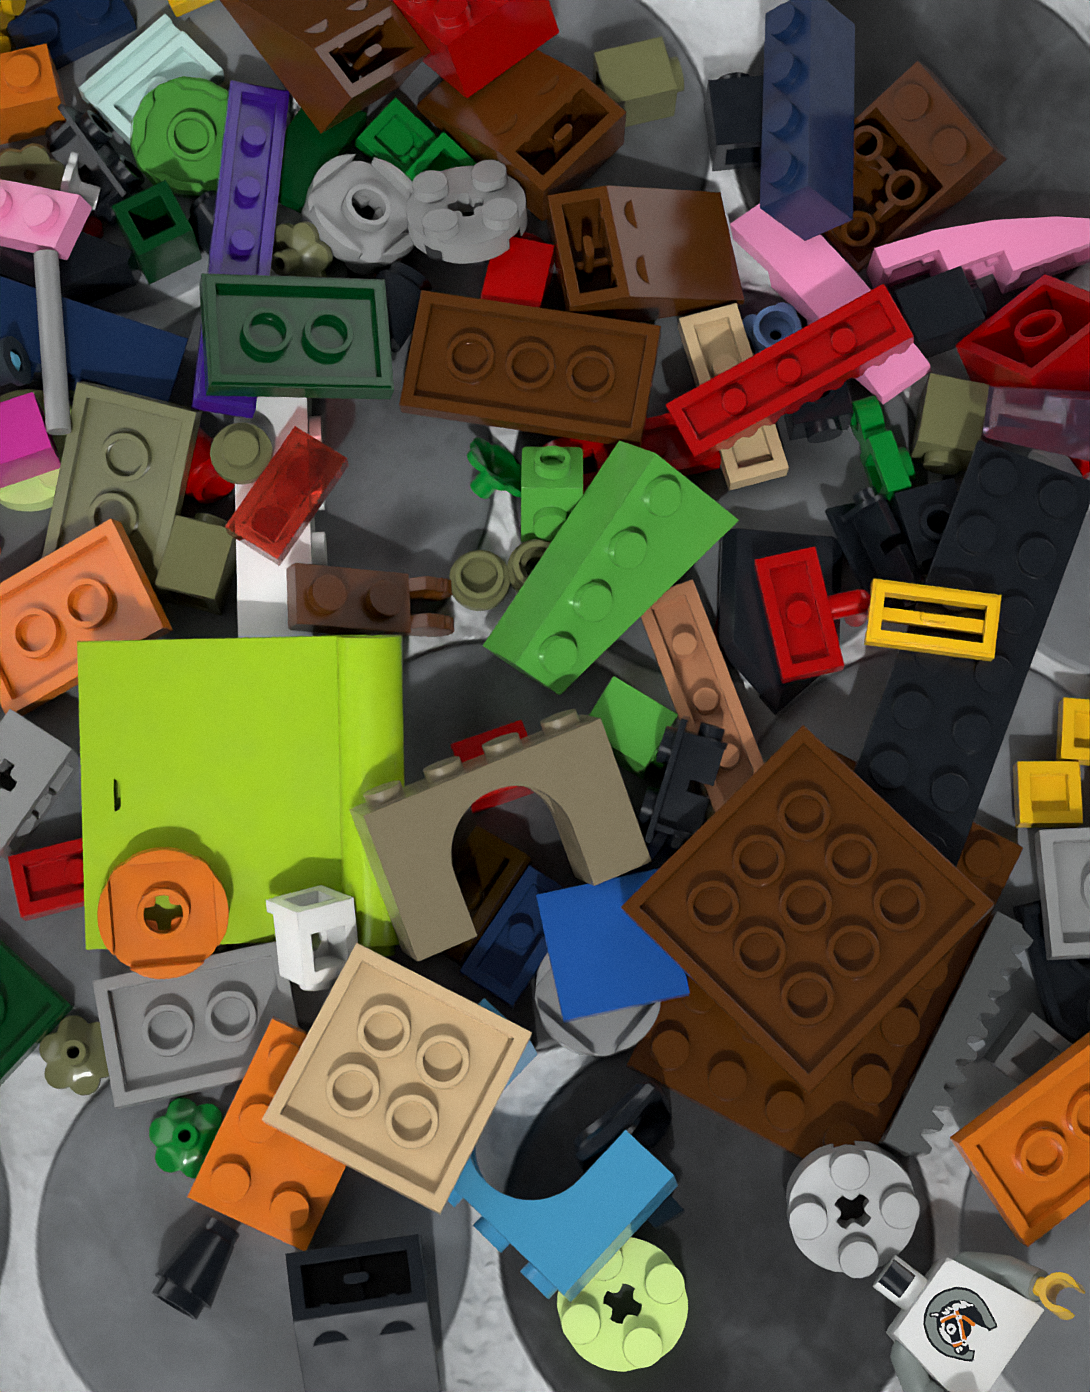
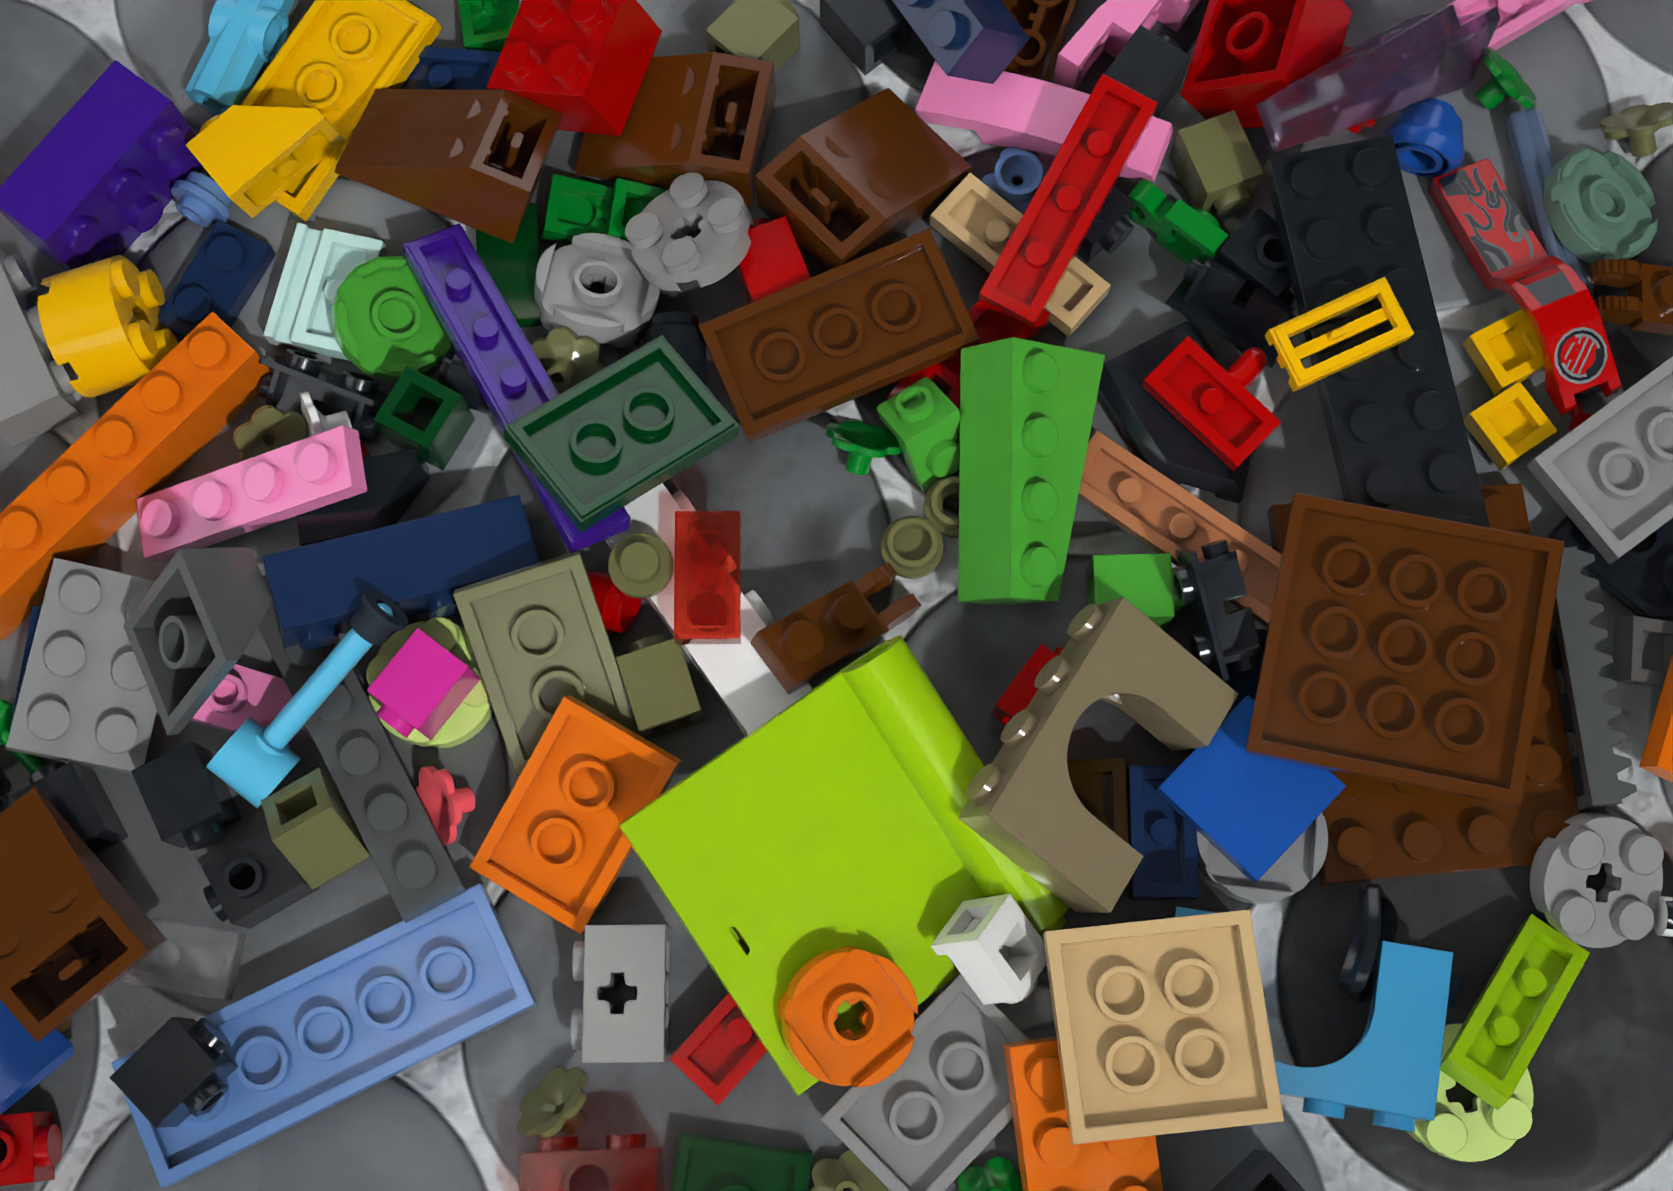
camera: 30 degrees left, 0 degrees up
(52, 342) = (405, 572): light grey bar -> none
(701, 1261) = (1514, 1012): none -> lime plate

